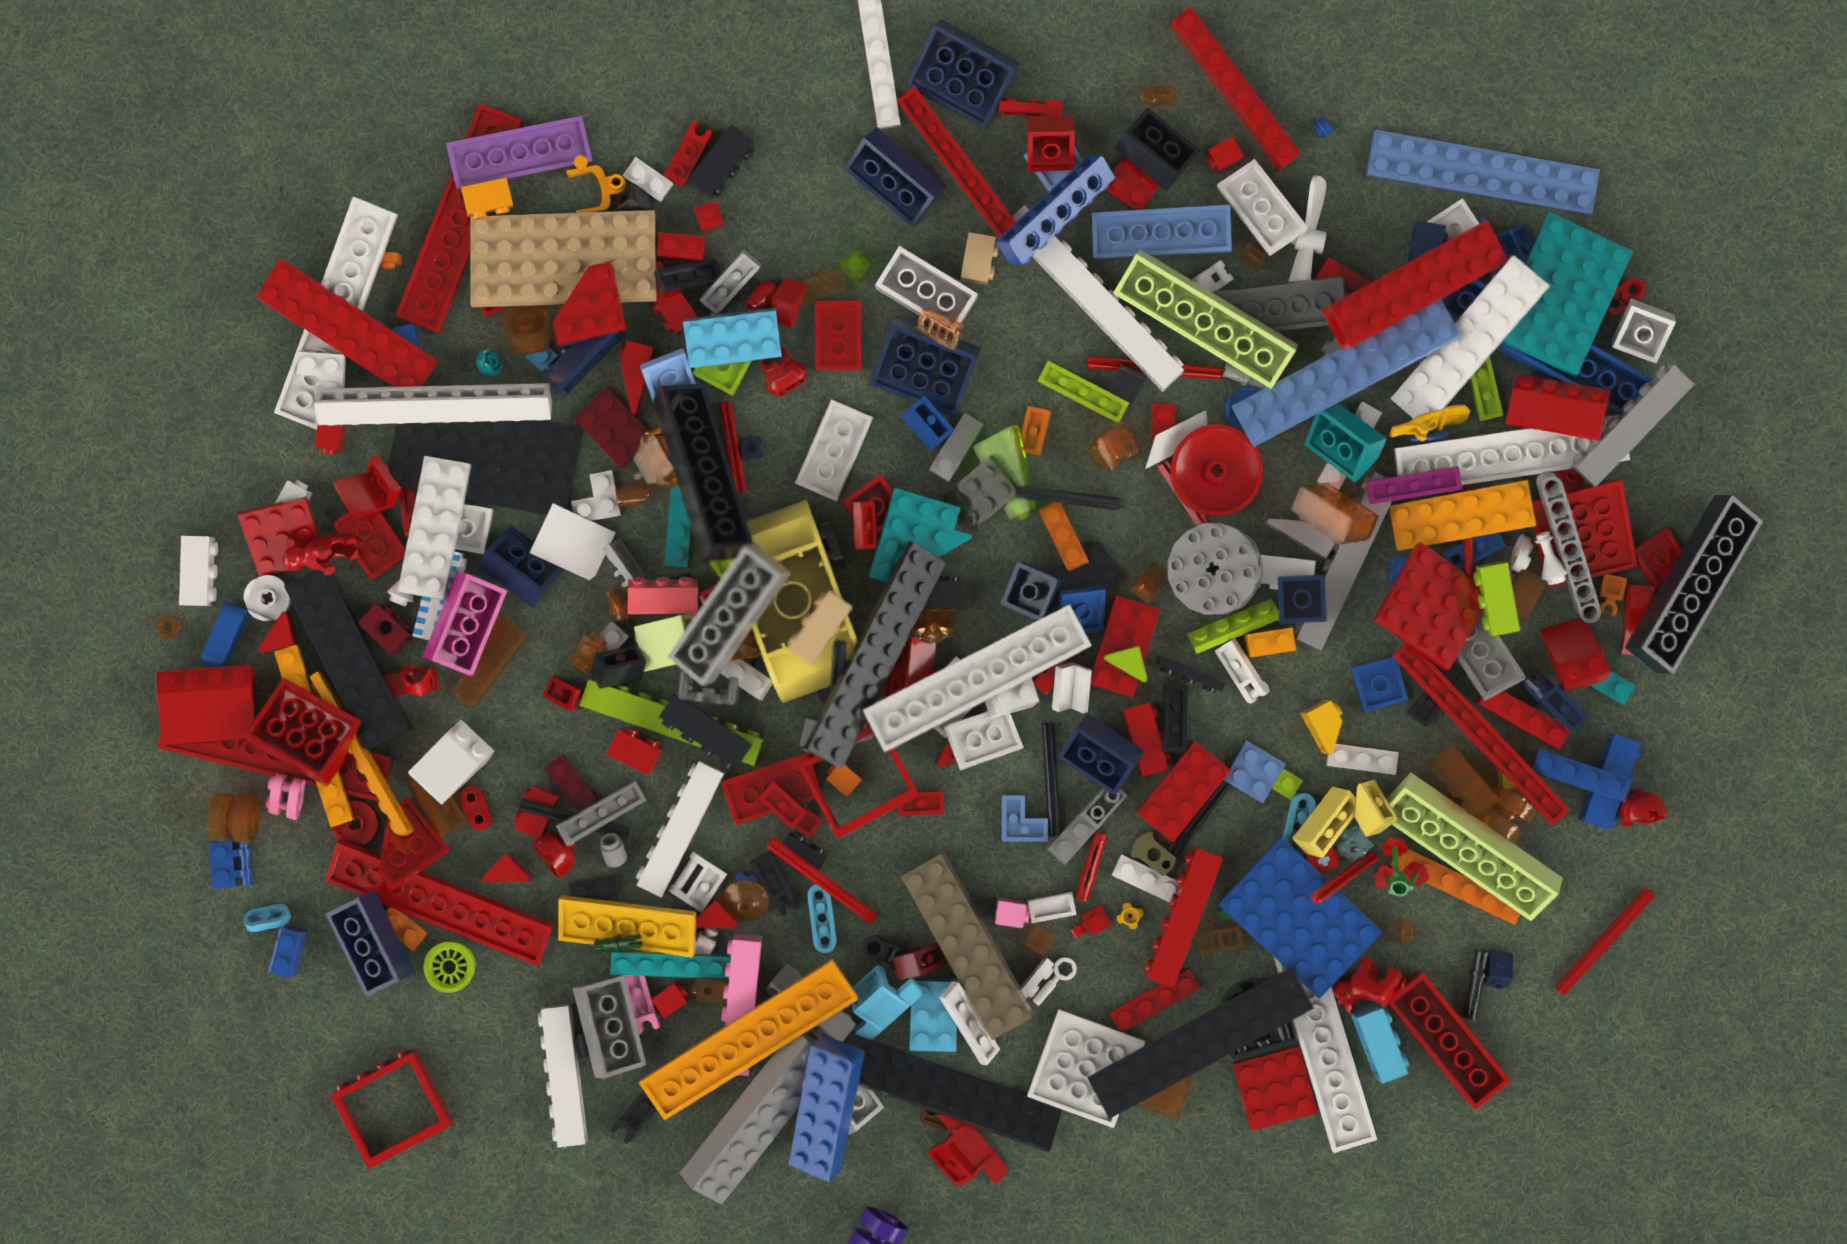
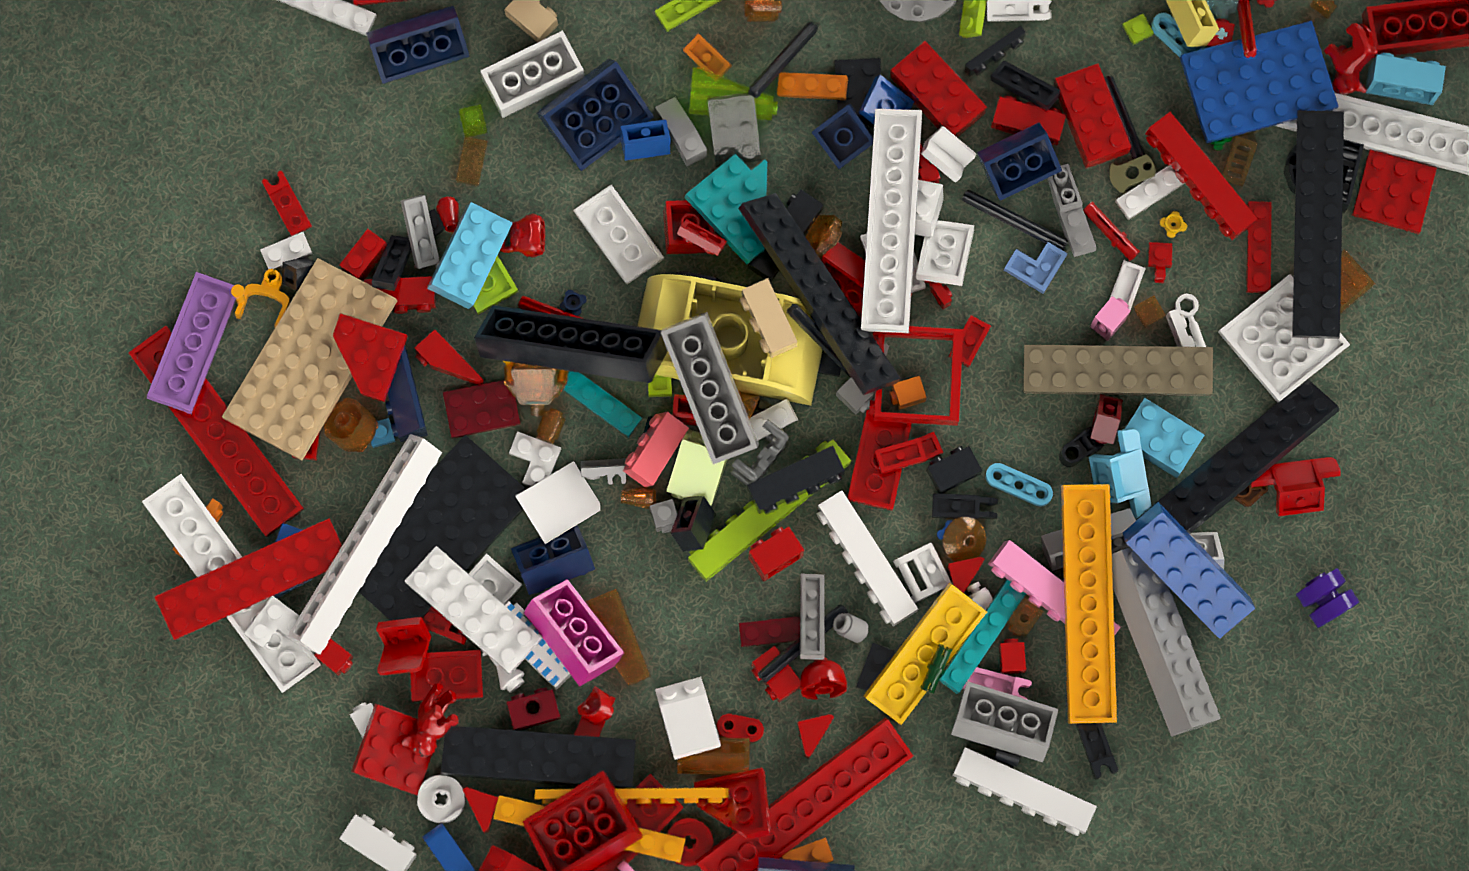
camera: 55 degrees left, 10 degrees down
(443, 985) = (874, 814): lime wheel -> none
(487, 198) = (215, 392): light orange brick -> none
(488, 363) = (357, 481): teal plate -> none
(563, 693) = (686, 589): red slope -> none
(586, 650) = (664, 544): clear orange plate -> none
(666, 371) = (461, 330): light blue plate -> none
(709, 217) = (352, 217): red brick -> none
(722, 162) = (312, 178): black brick -> none
(788, 301) = (465, 192): red slope -> none
(821, 880) = (986, 460): red axle -> none
(837, 335) = (522, 171): red plate -> none
(949, 324) = (584, 79): clear orange slope -> none
(969, 1023) = (1186, 408): white plate -> none
(1128, 661) = (956, 88): lime slope -> none
(1150, 583) = (897, 39): clear orange slope -> none
(1254, 771) = (1111, 48): medium blue plate -> none

